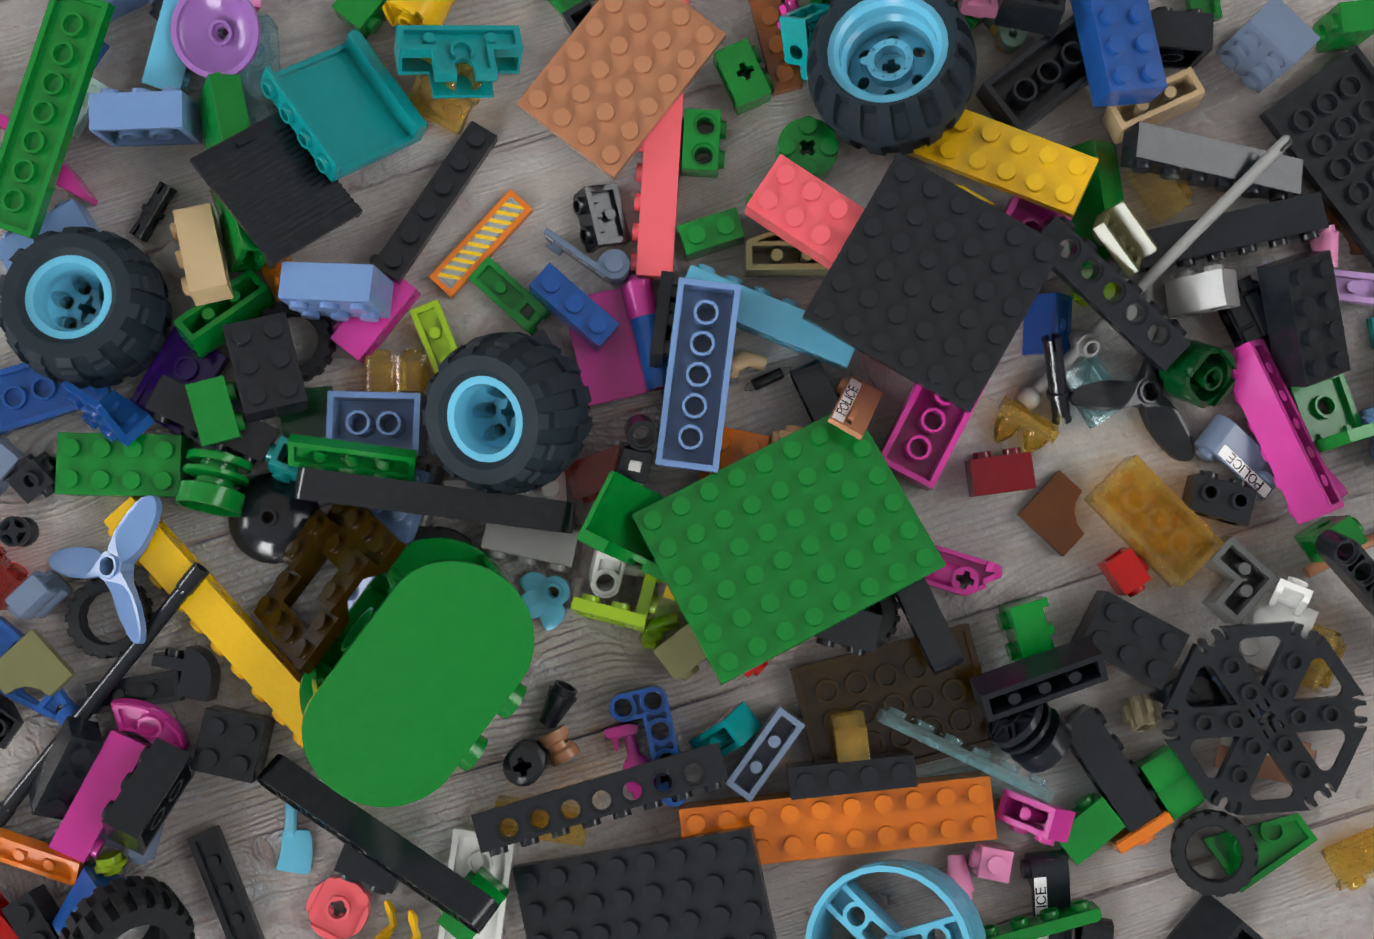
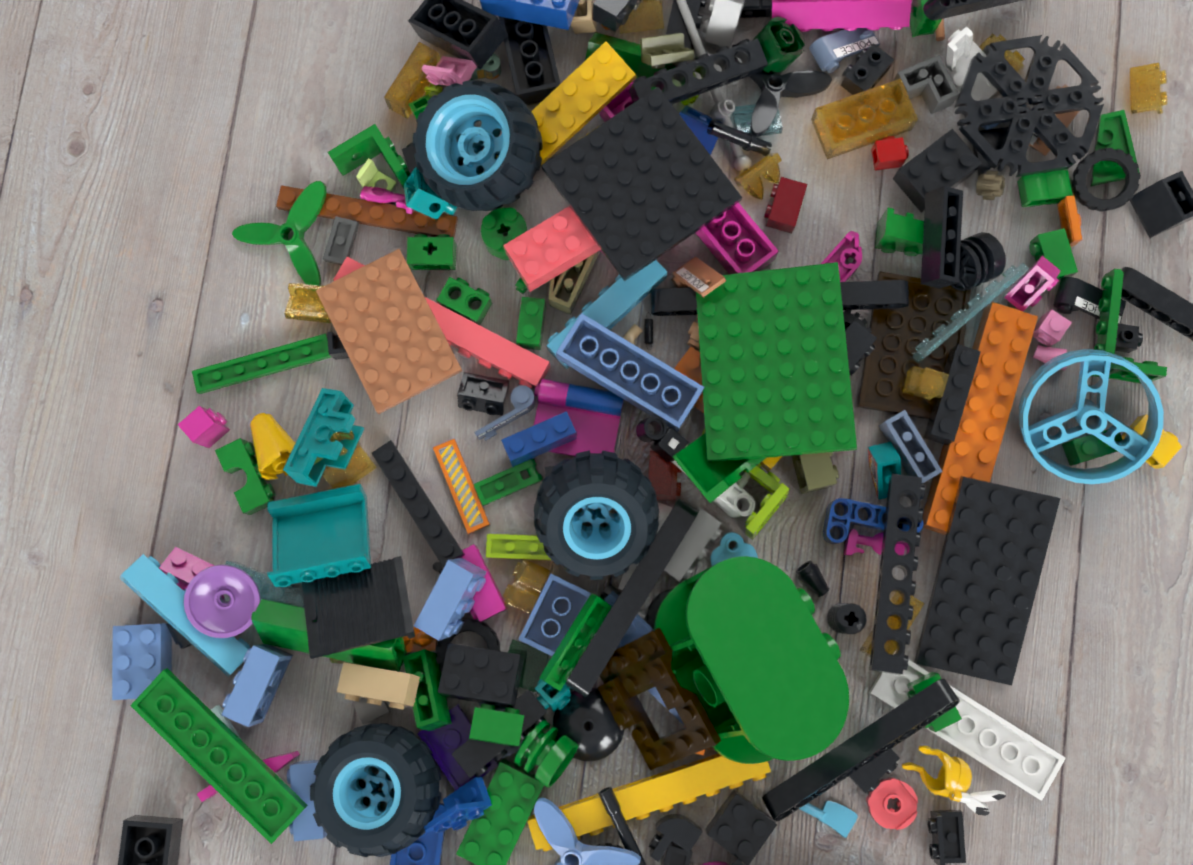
camera: 55 degrees left, 5 degrees down
(153, 211) = (325, 712): black pin -> none
(559, 745) = (846, 590): nougat wheel -> none
(656, 627) = (795, 492): clear neon green arm -> none
(663, 320) = (578, 380): black plate -> none
(1052, 513) = (828, 183): reddish brown tile -> none
(1109, 769) = (1020, 222): black brick -> none

